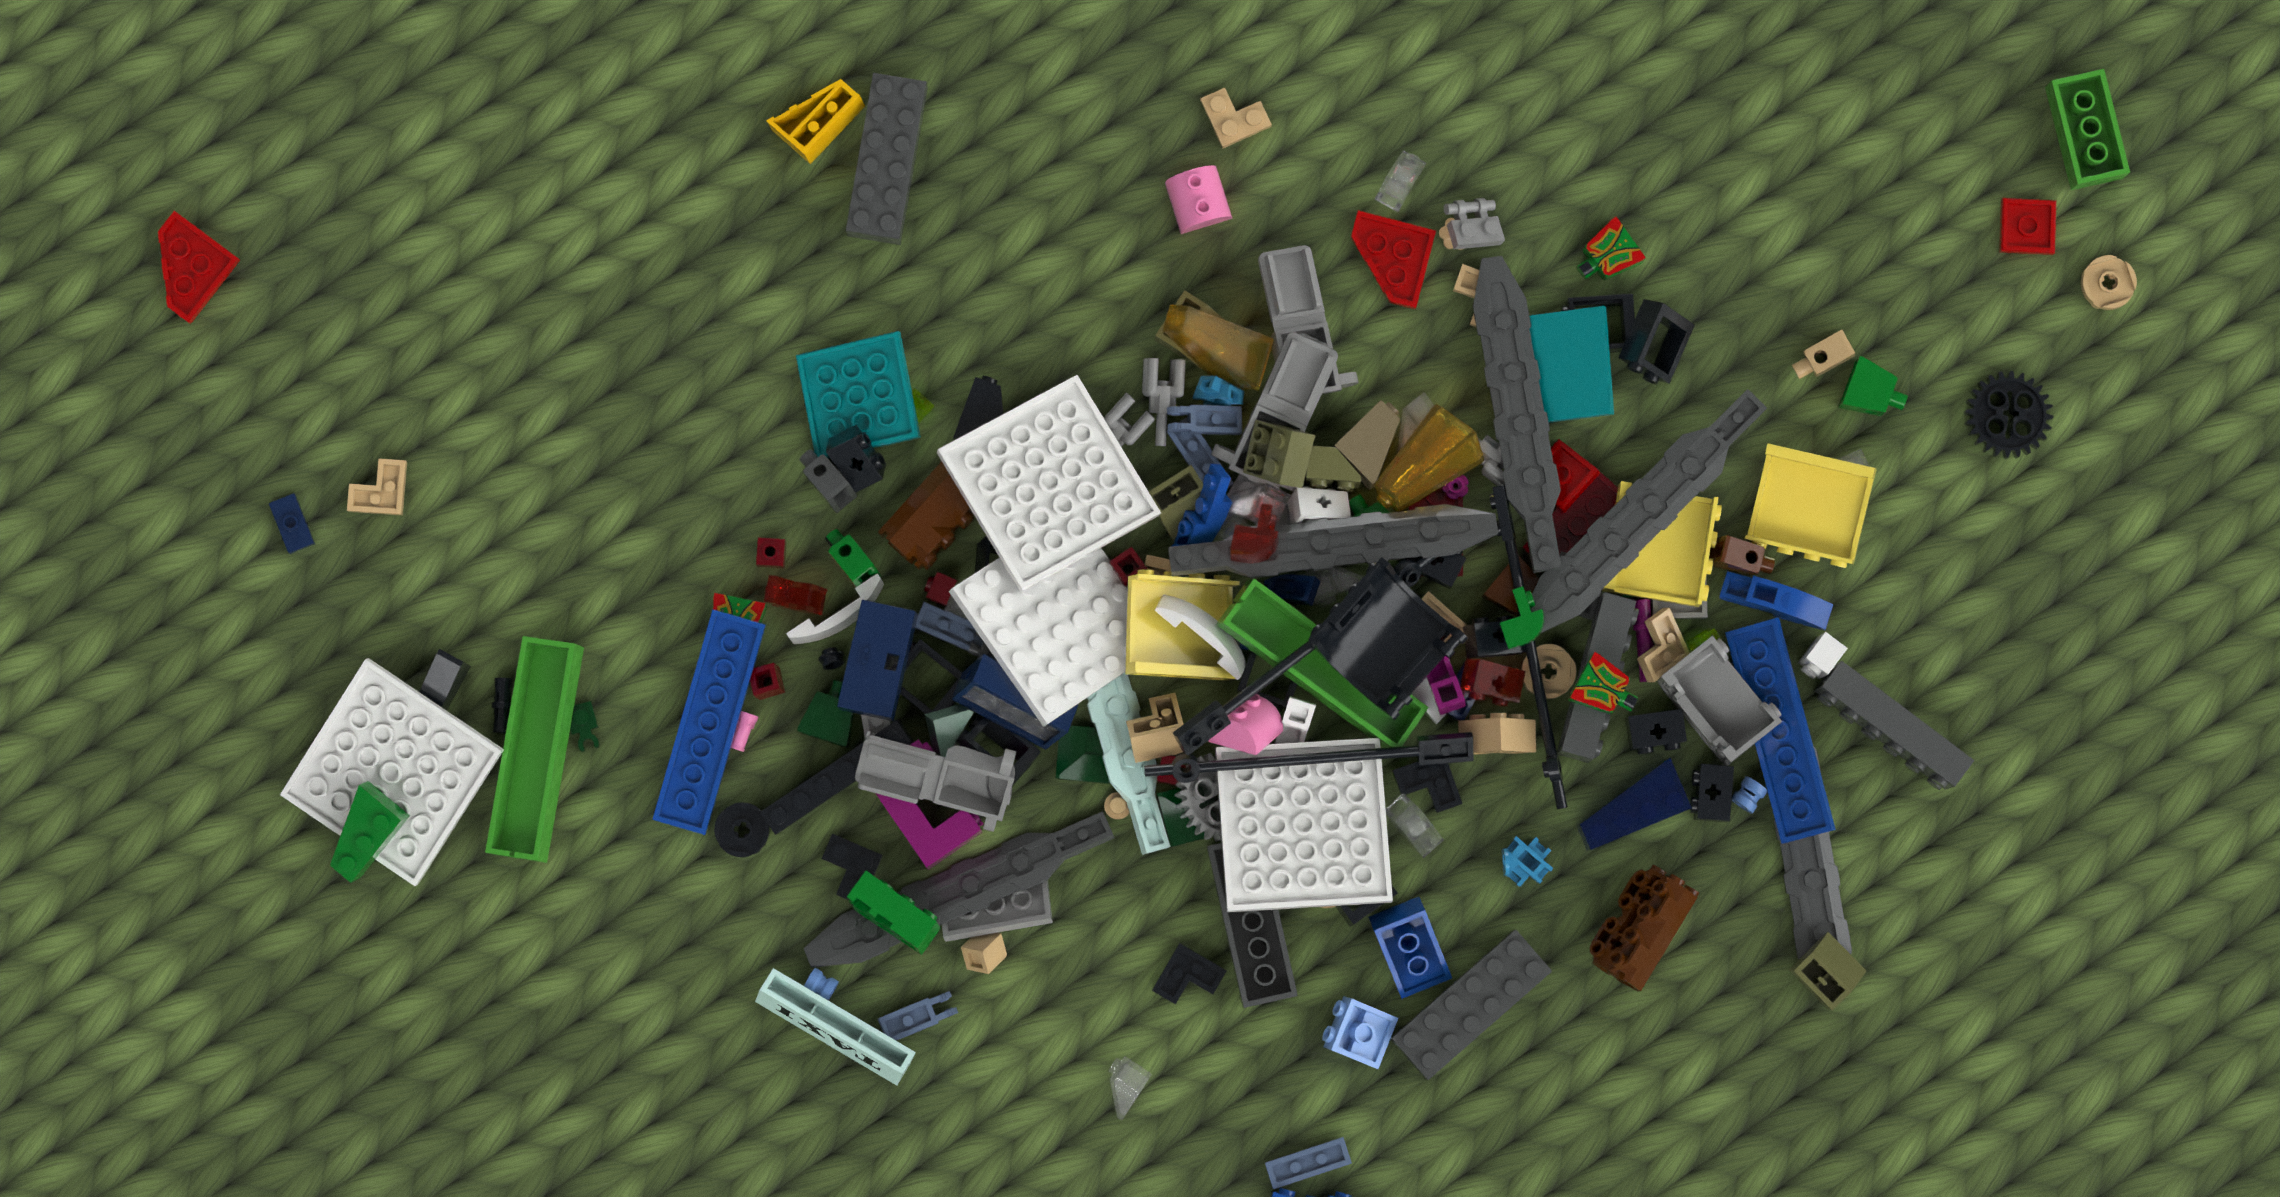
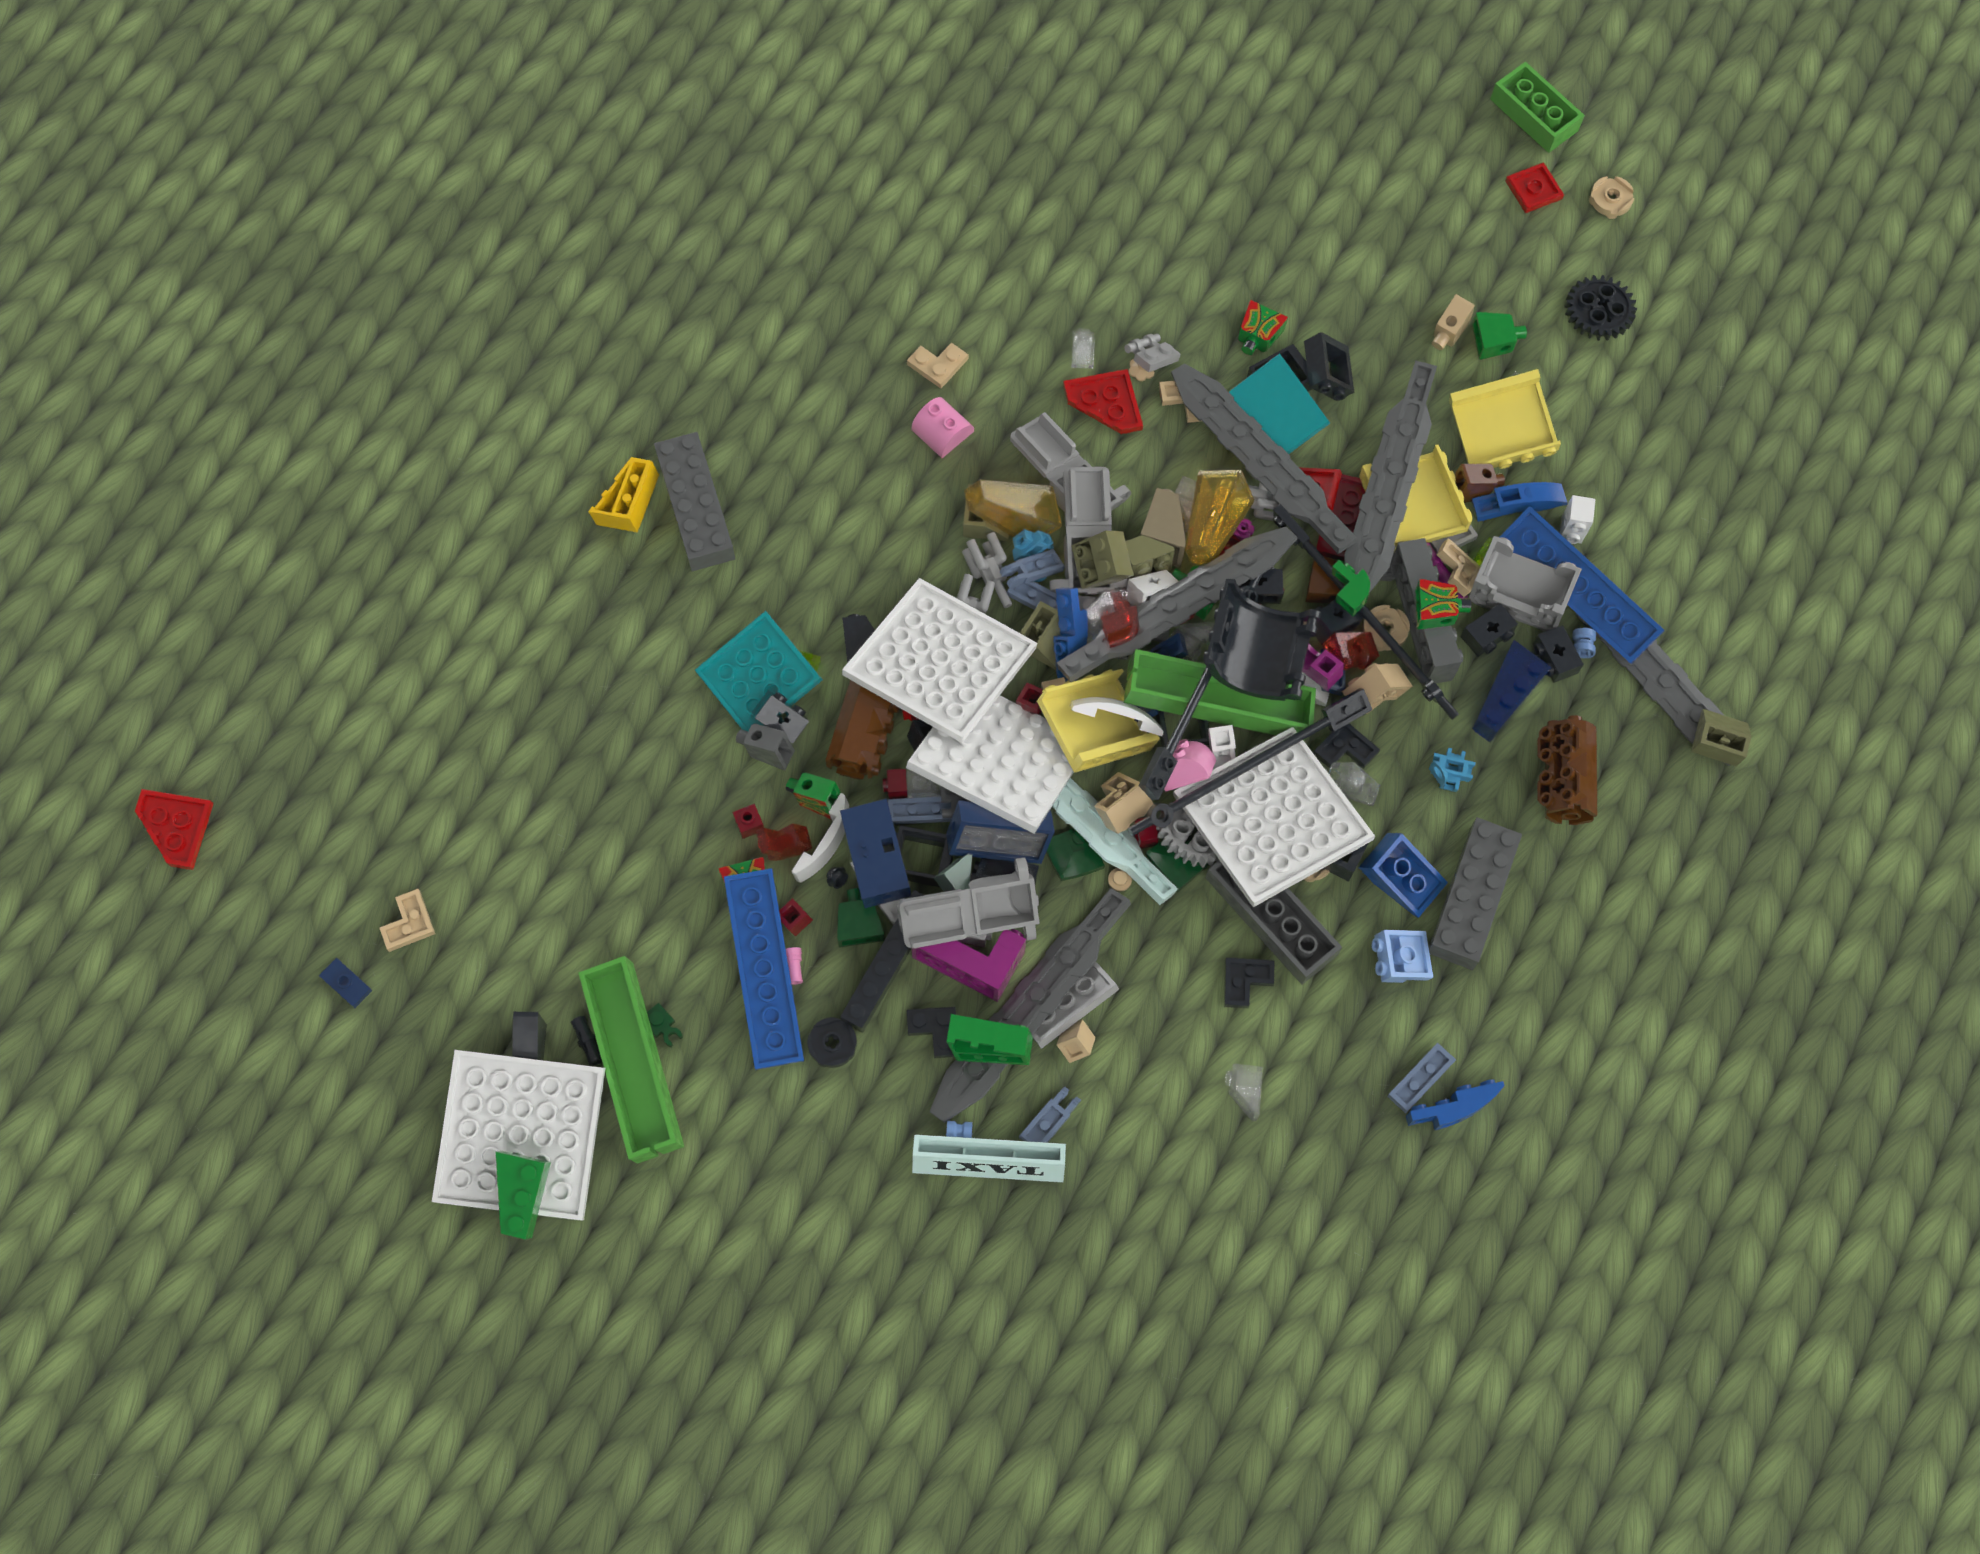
camera: 25 degrees left, 15 degrees down
(1893, 726) = (1658, 543): dark grey brick -> none

